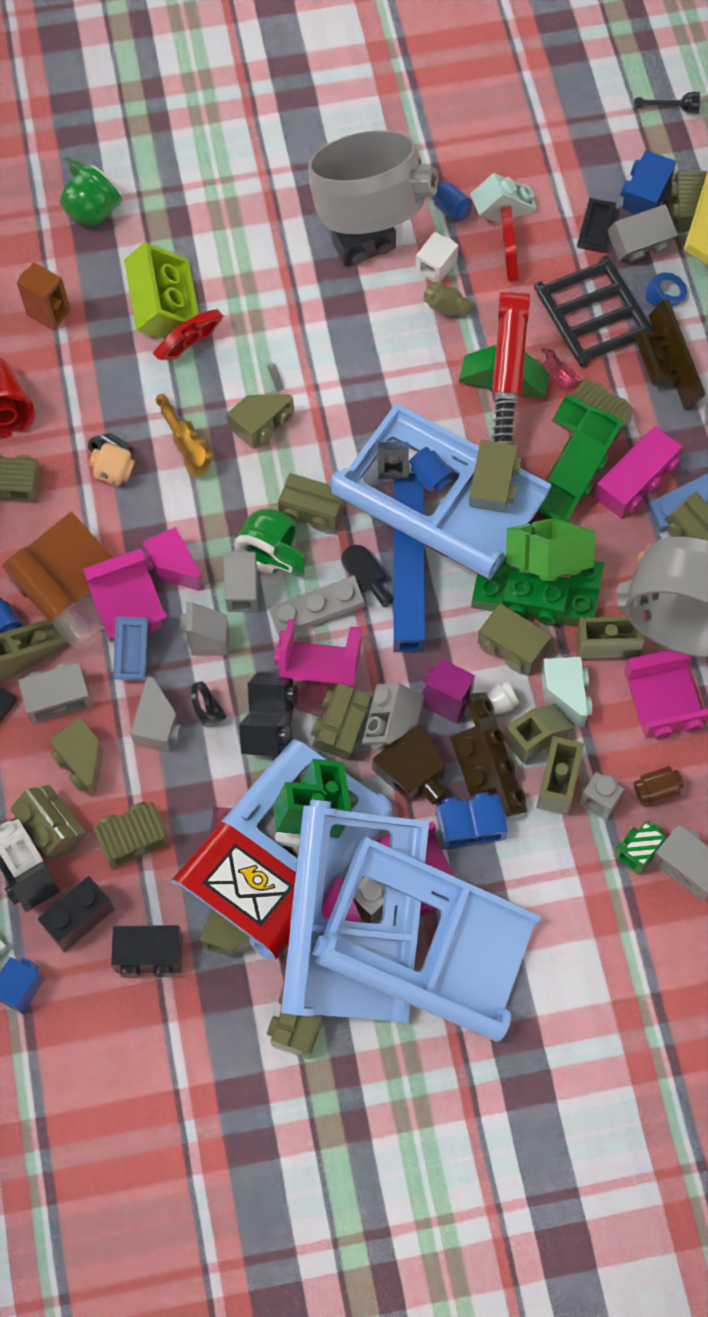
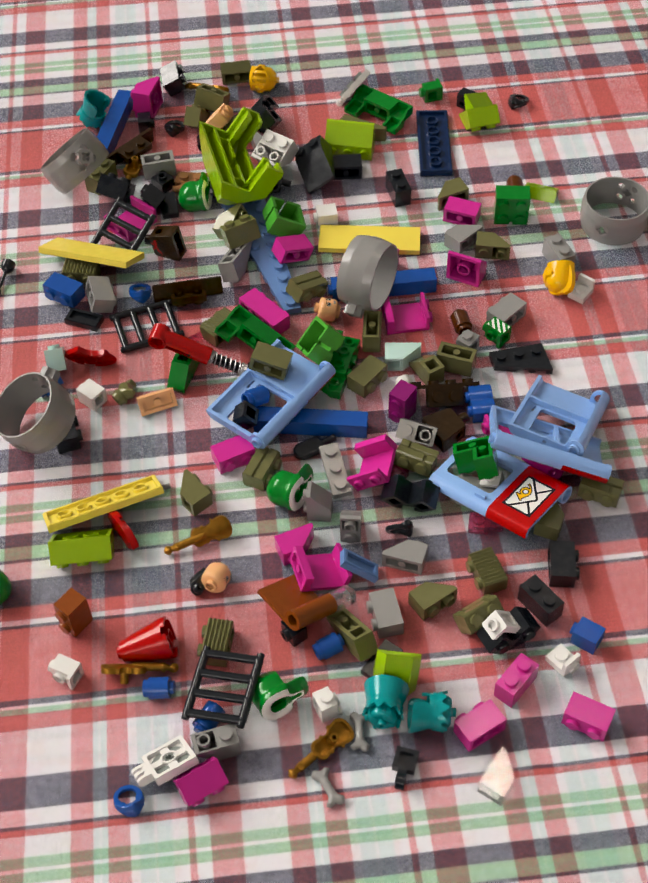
camera: 85 degrees left, 15 degrees down
(232, 305) = (102, 503): none -> light yellow tile
(331, 452) = (232, 453): none -> dark pink brick
(431, 345) = (156, 401): none -> light nougat plate
(588, 895) = (521, 358): none -> black wing

